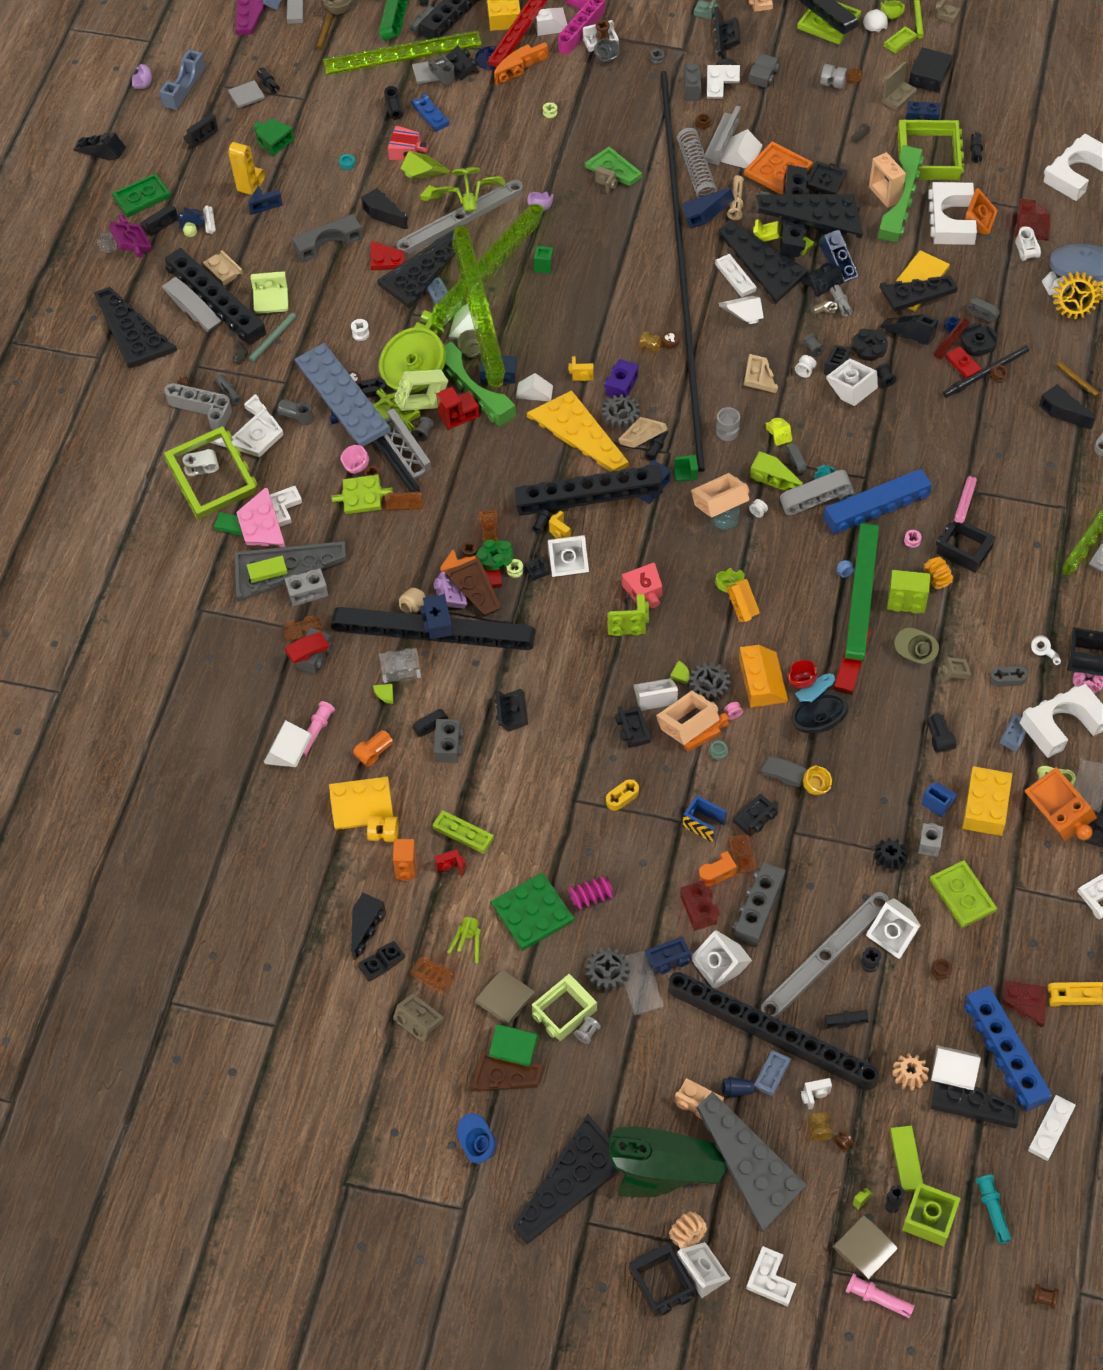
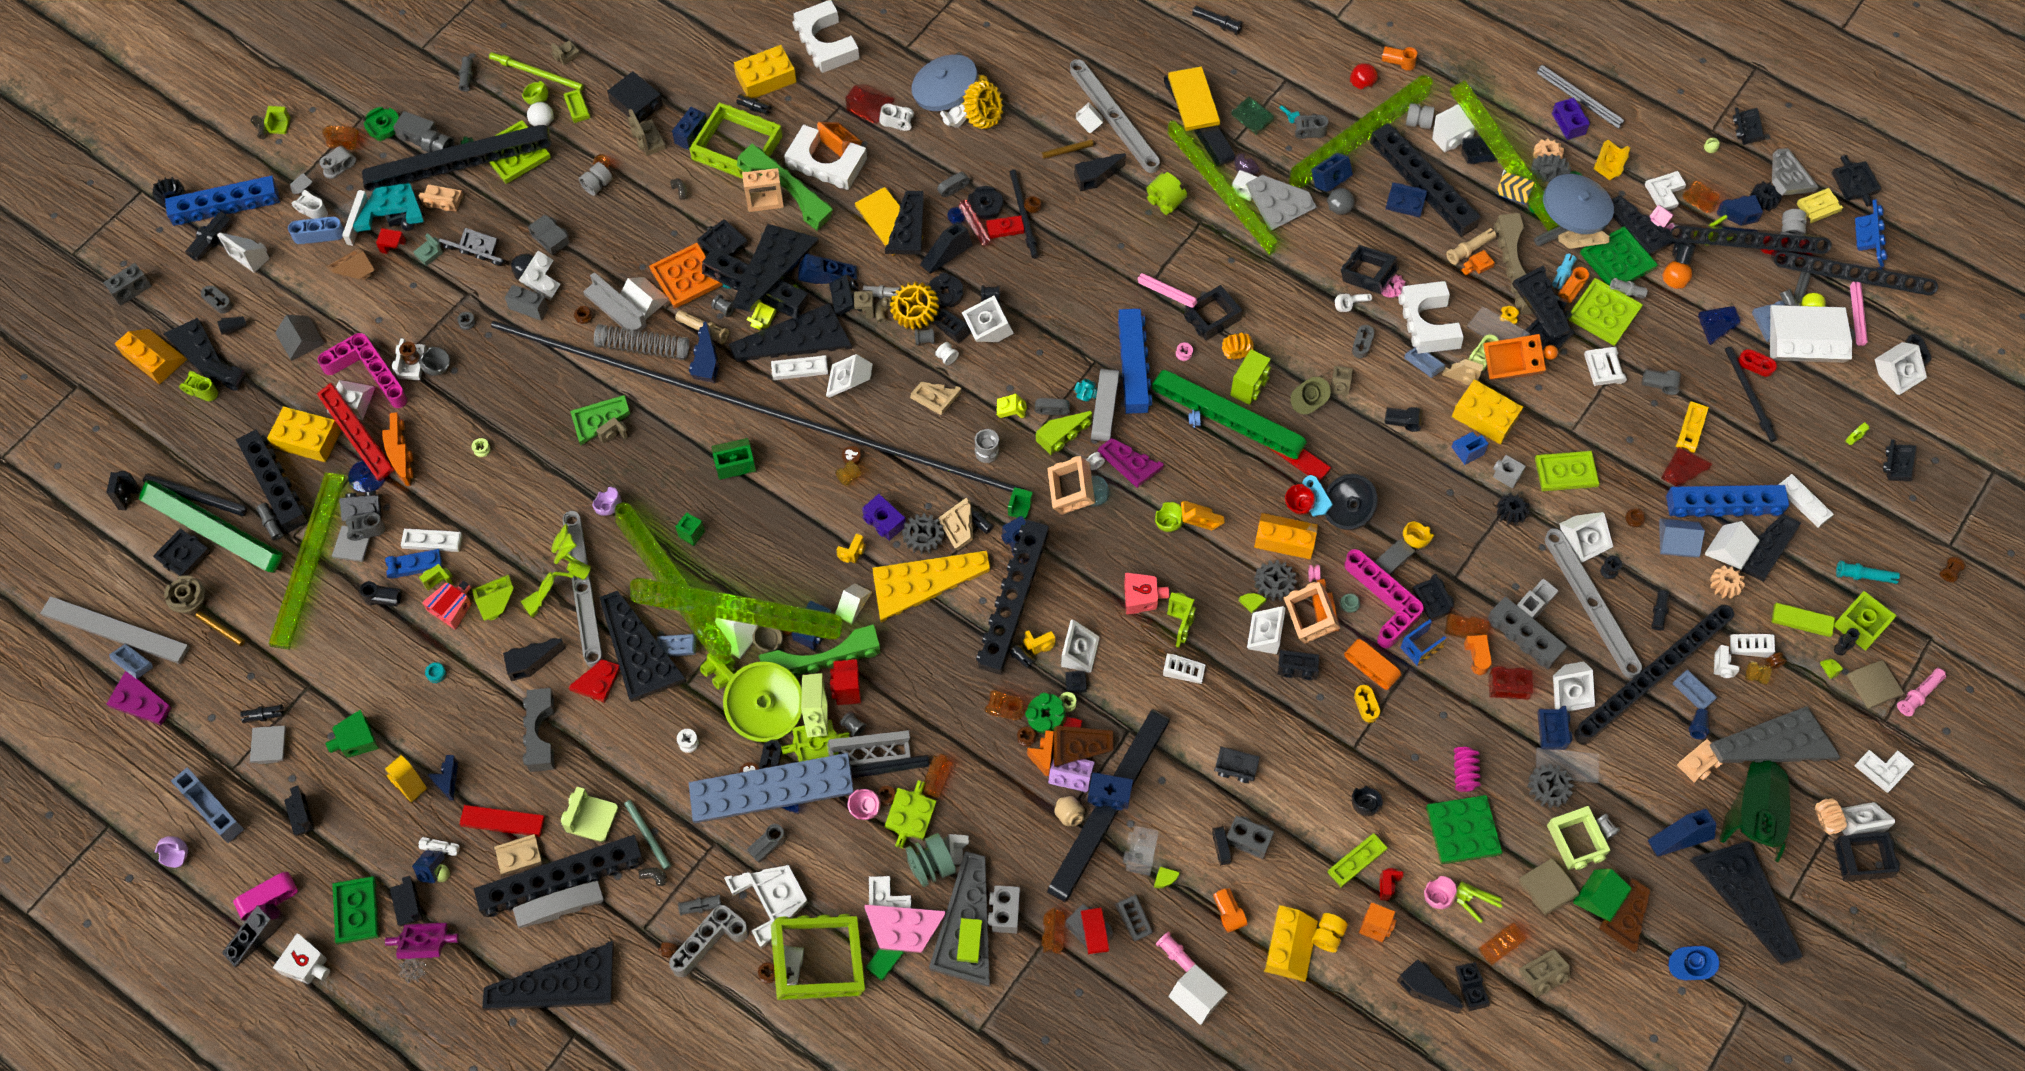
camera: 70 degrees left, 5 degrees up
(90, 180) = (302, 962): none -> white torso
(135, 143) = (269, 892): none -> dark pink beam
(245, 247) = (502, 820): none -> red tile
(323, 517) = (930, 860): none -> sand green wheel
(343, 532) = (955, 844): none -> white panel
(350, 679) = (1127, 921): none -> dark grey slope
(424, 127) = (434, 576): none -> lime bracket
(455, 115) = (431, 540): none -> white tile
(457, 906) = (1440, 893): none -> bright pink hair
(521, 819) = (1366, 801): none -> black hair
(587, 629) = (1174, 673): none -> white slope
(610, 1100) = (1684, 833): none -> dark blue slope
(622, 261) = (733, 458): none -> green slope
(663, 785) = (1372, 664): none -> orange beam
(742, 777) = (1386, 595): none -> dark pink beam
(771, 535) = (1130, 464): none -> magenta wing
(795, 902) = (1536, 600): none -> light grey brick
(821, 290) = (864, 301): none -> dark tan bracket
(838, 325) = (916, 292): none -> yellow gear
(855, 1131) = (1752, 639): none -> white slope
(941, 1016) = (1680, 538): none -> sand blue slope
(1012, 140) = (765, 72): none -> yellow brick
(1018, 769) = (1464, 371): none -> tan wing
(1071, 462) = (1166, 192): none -> lime brick

